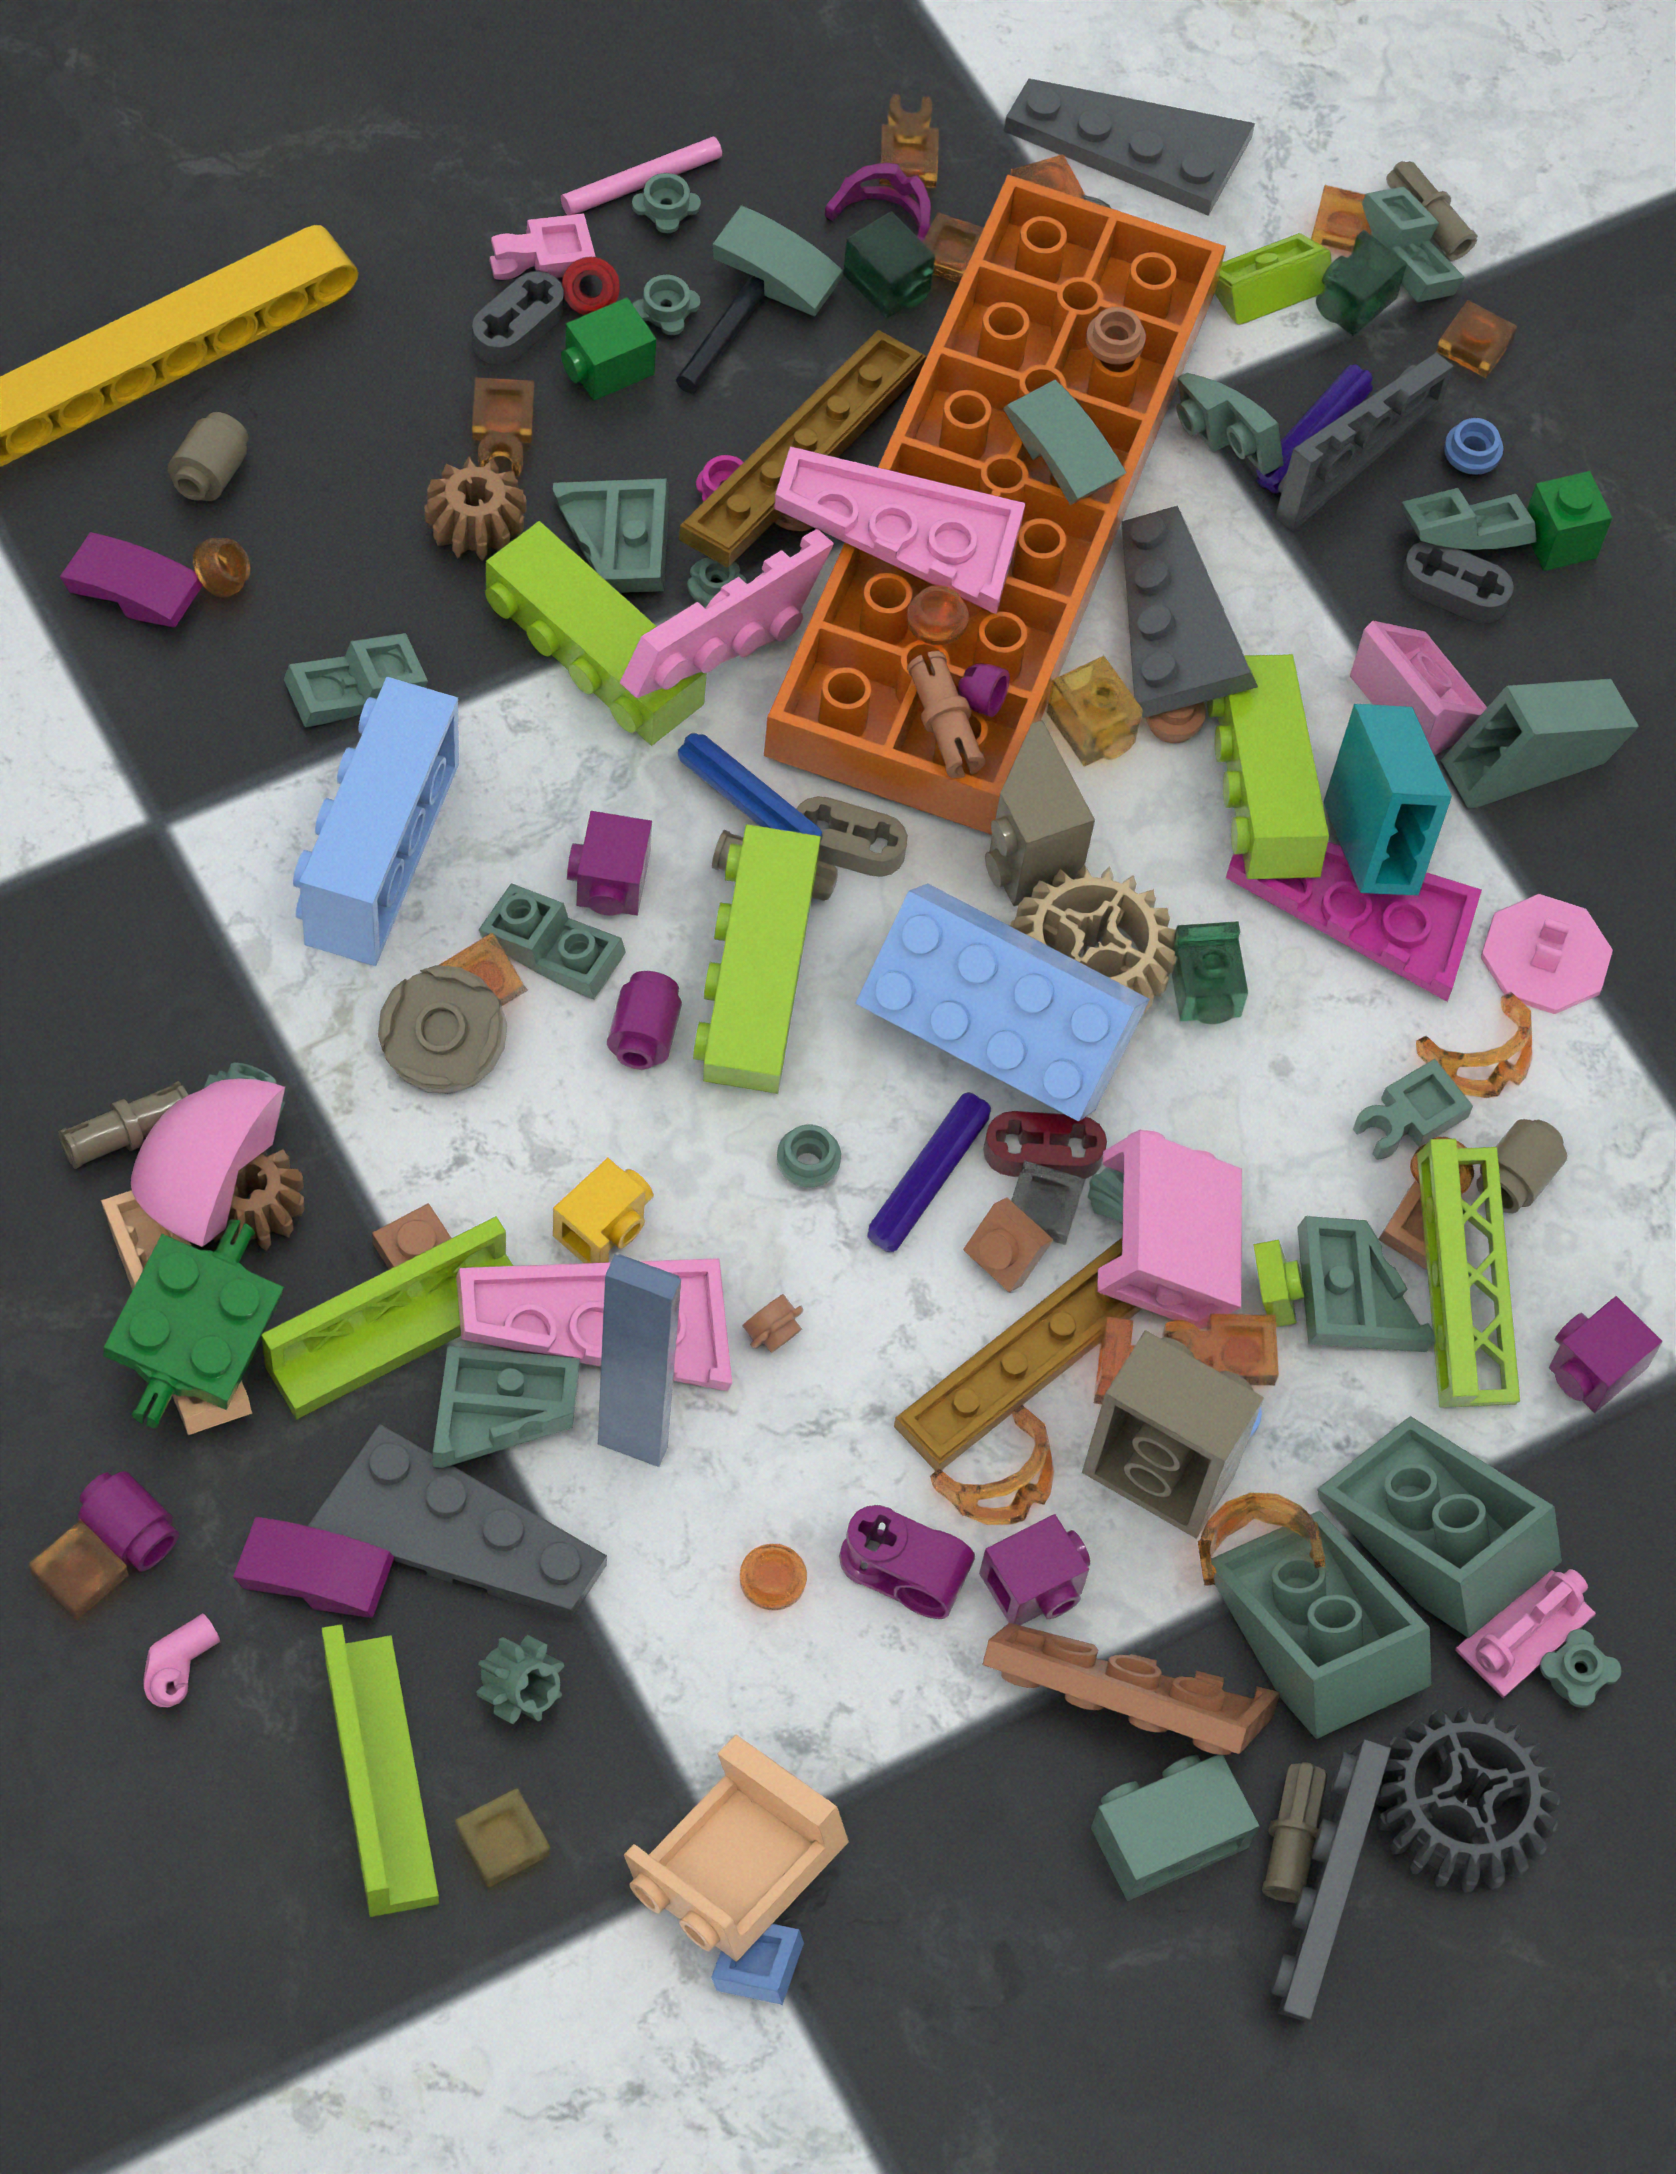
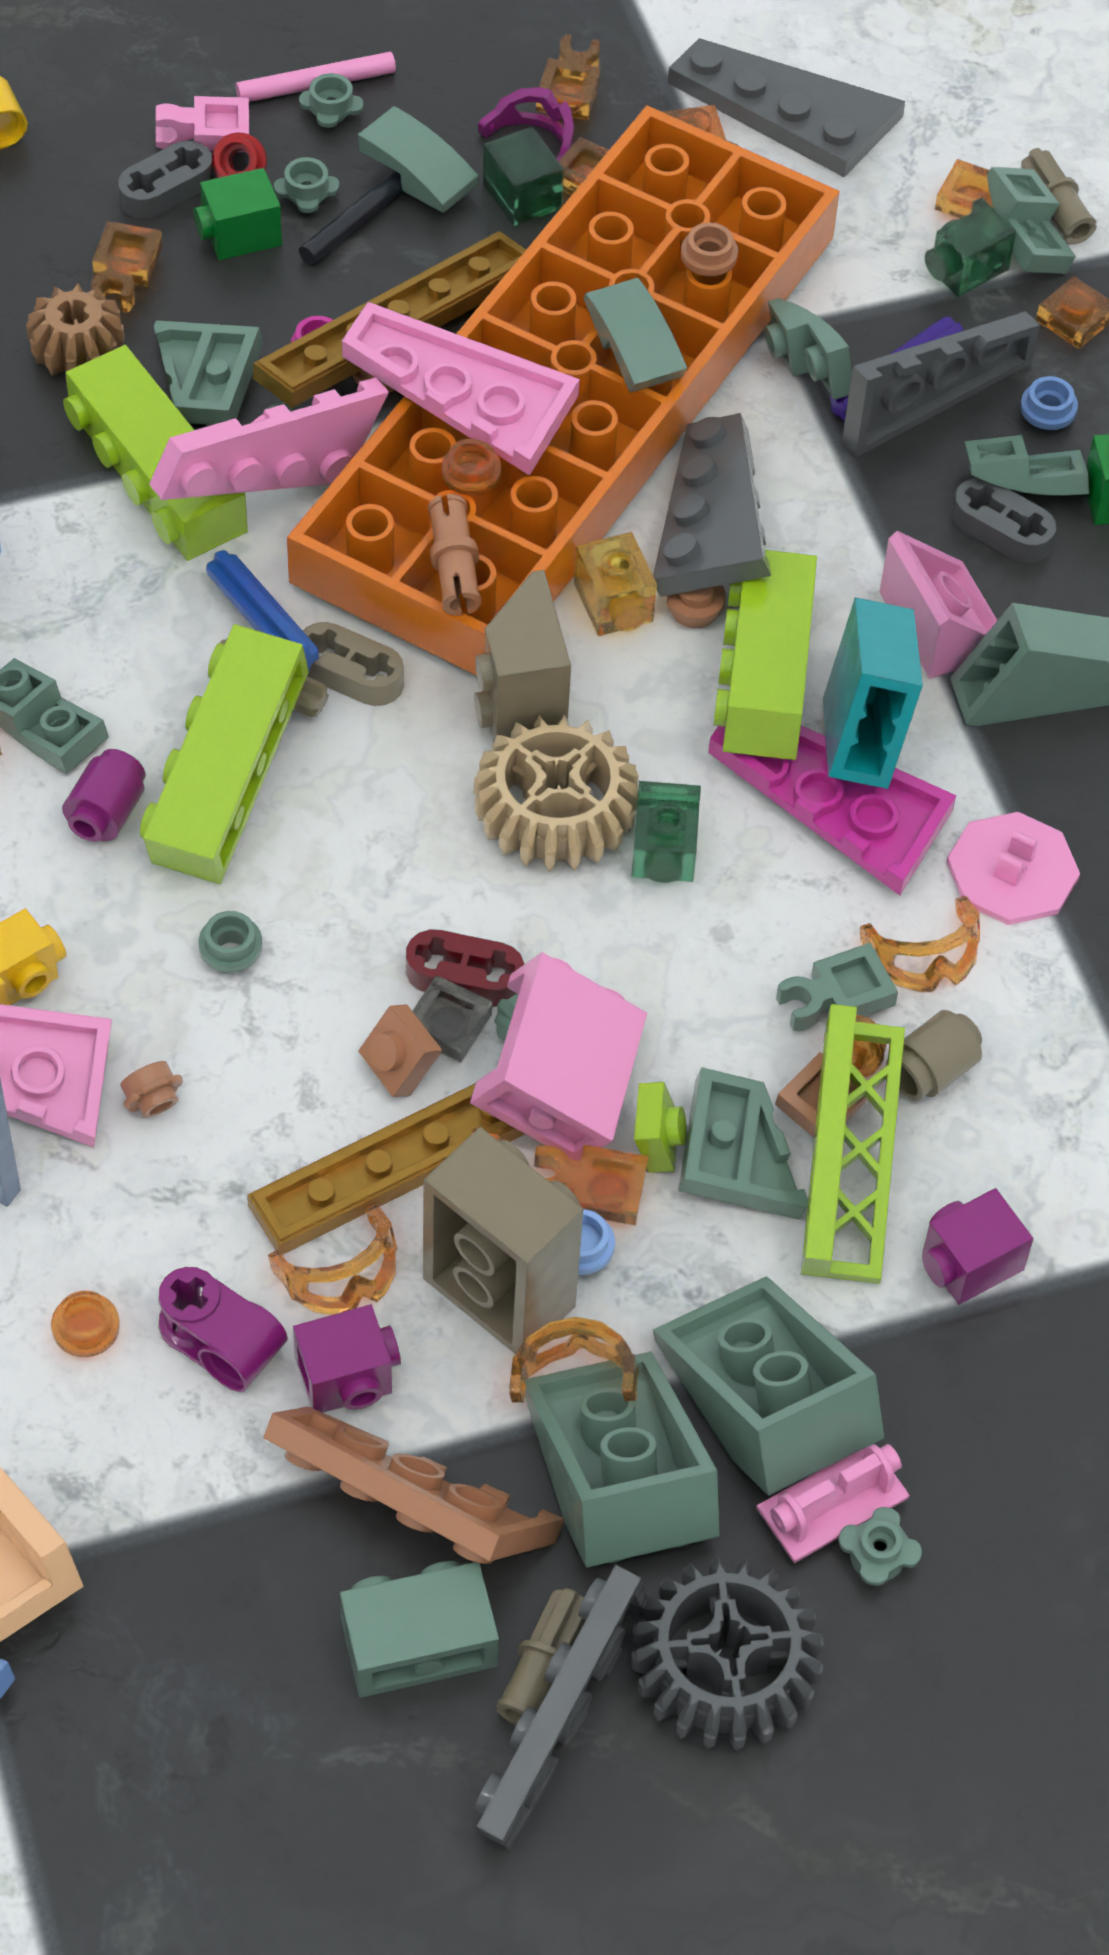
camera: 15 degrees right, 5 degrees down
(611, 863) = (113, 653): magenta brick -> none
(928, 1172) = (343, 975): dark purple axle -> none
(984, 688) = (499, 537): magenta hinge -> none
(1002, 1001) = (447, 823): light blue brick -> none
(1272, 277) = (887, 235): lime slope -> none

